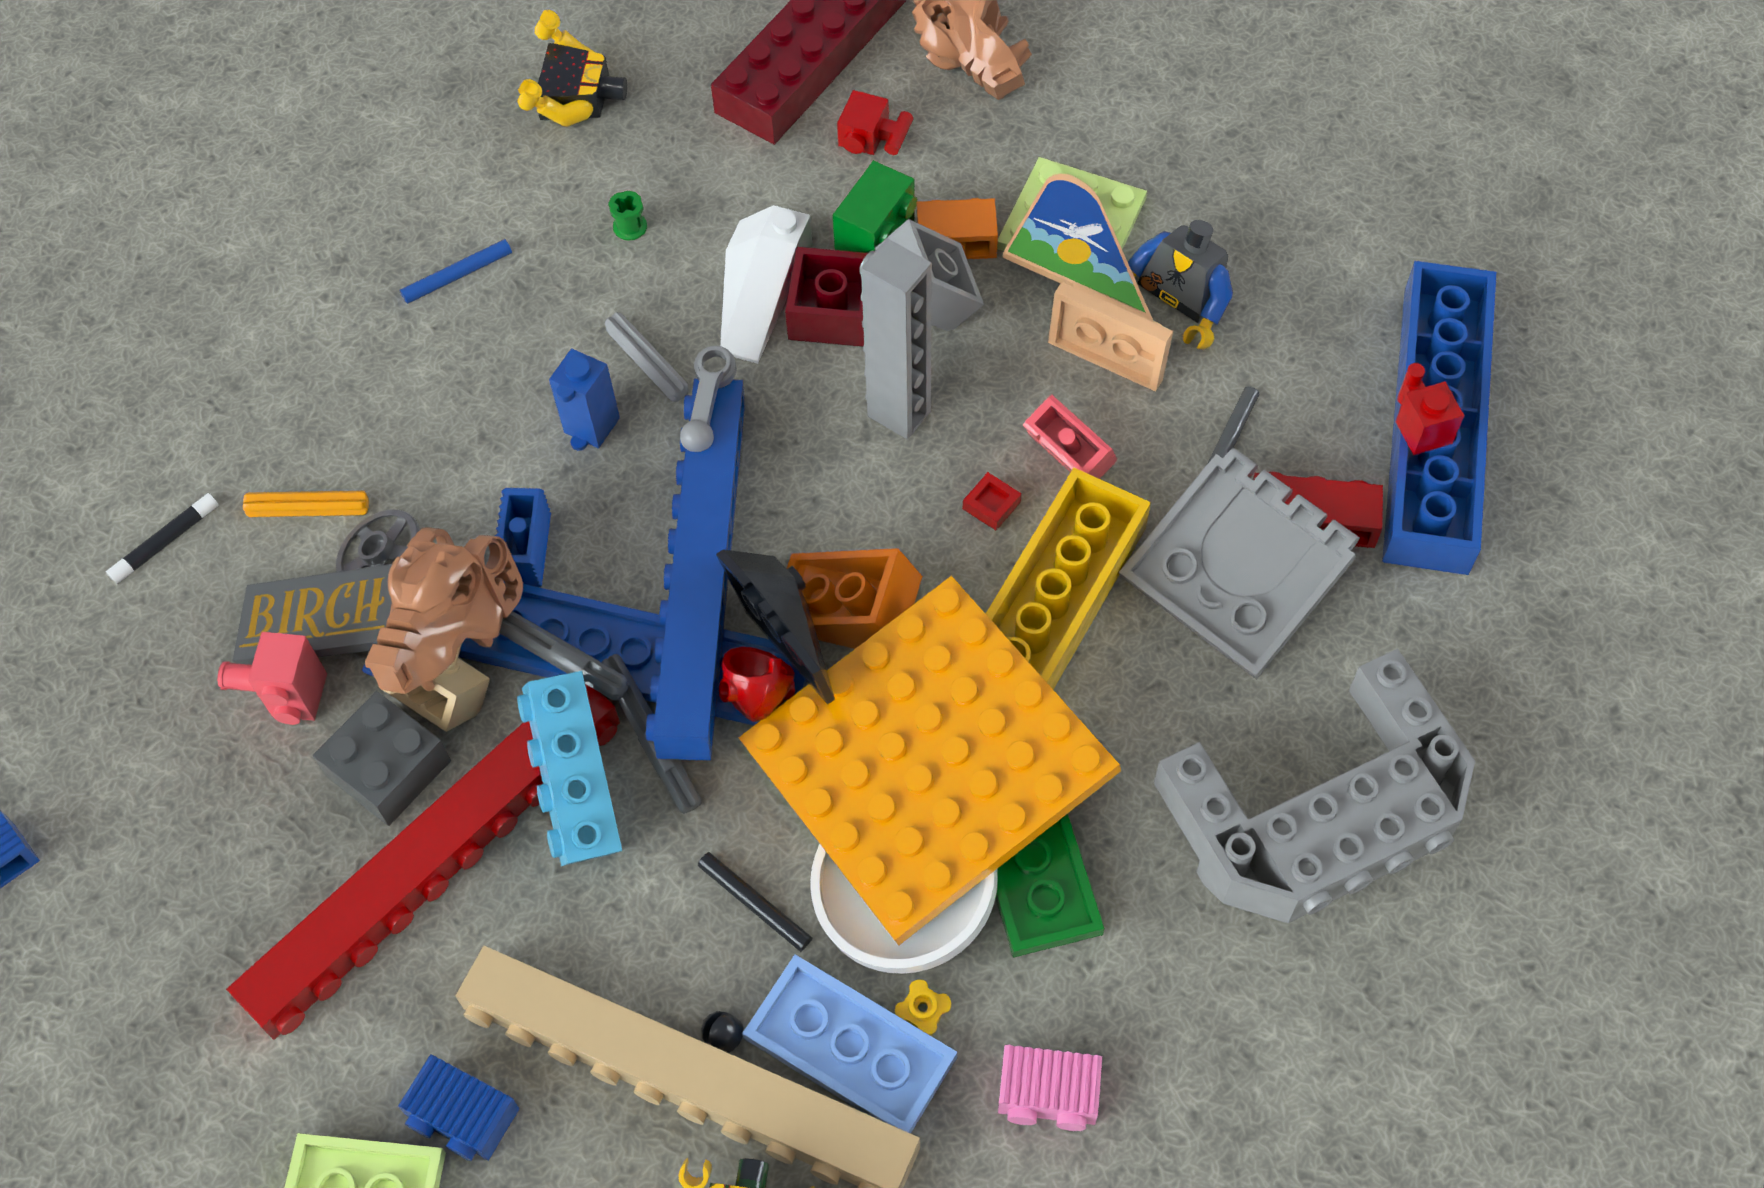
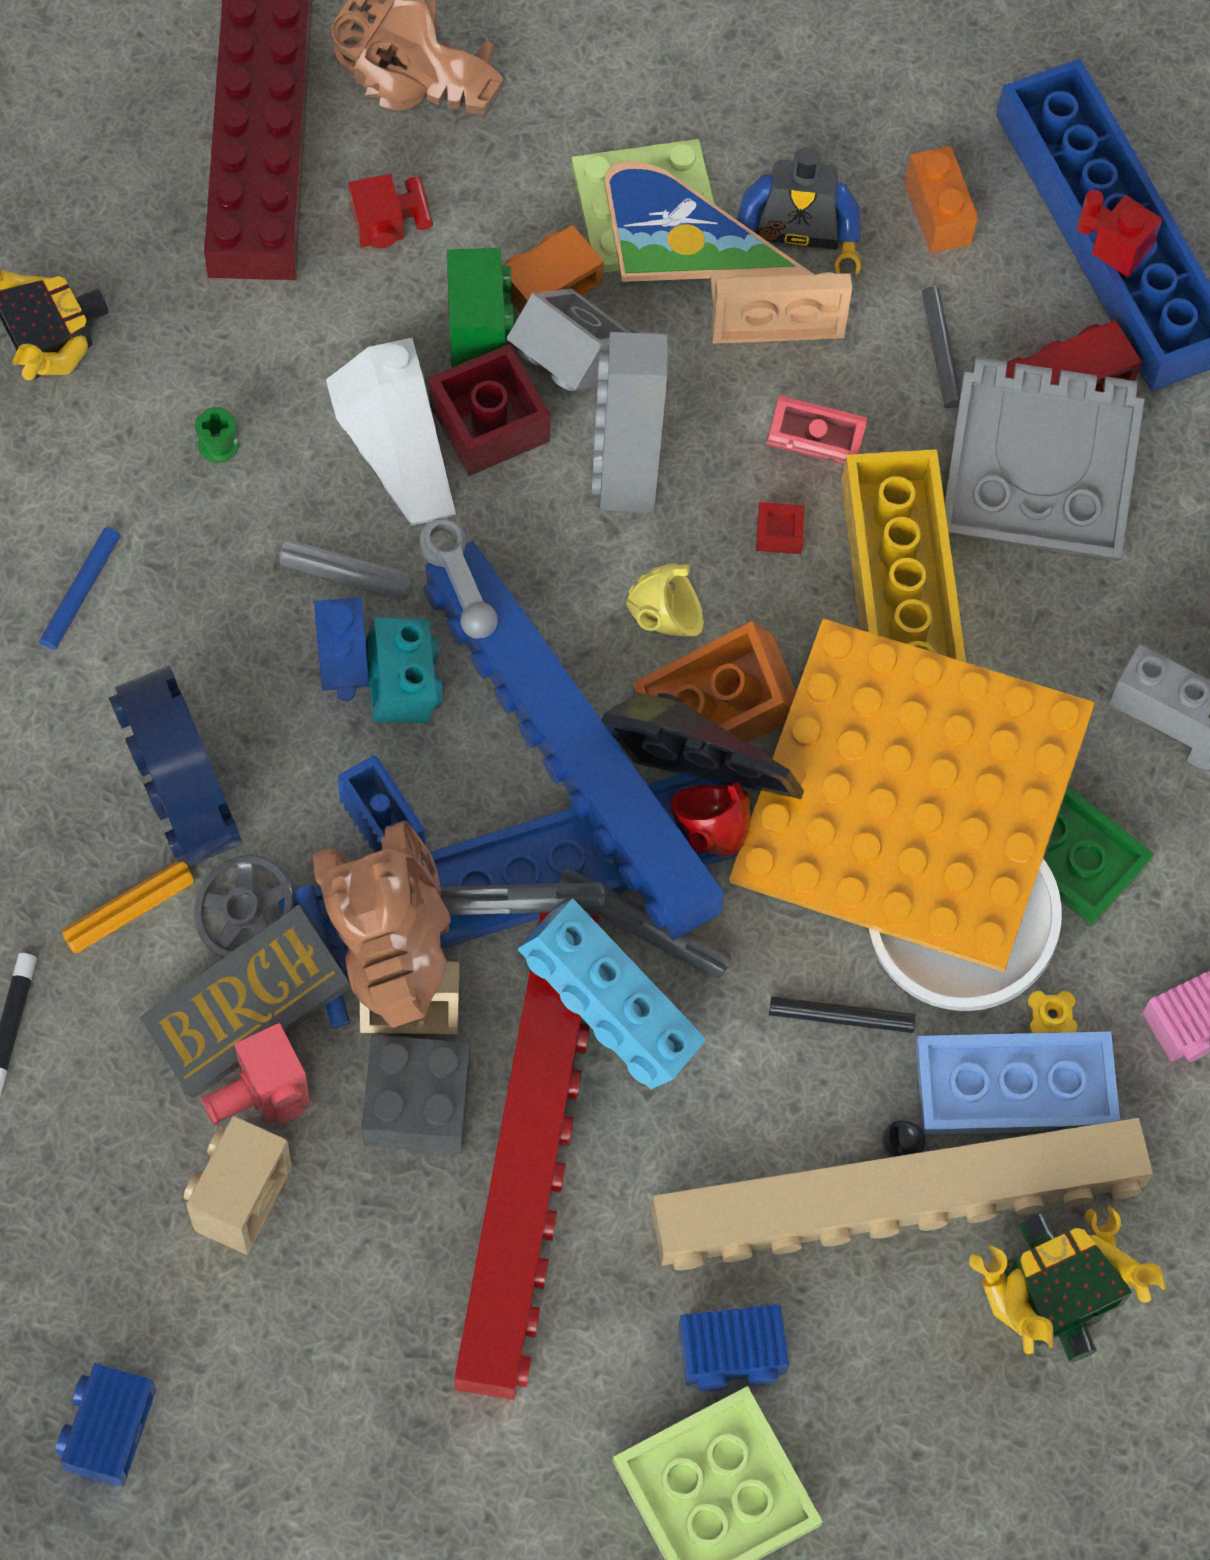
camera: 40 degrees left, 5 degrees up
(197, 743) = (238, 1184): none -> tan brick
(387, 412) = (181, 772): none -> dark blue brick
(620, 445) = (402, 670): none -> teal brick
(851, 506) = (664, 609): none -> light yellow helmet
(1306, 325) = (940, 199): none -> orange brick

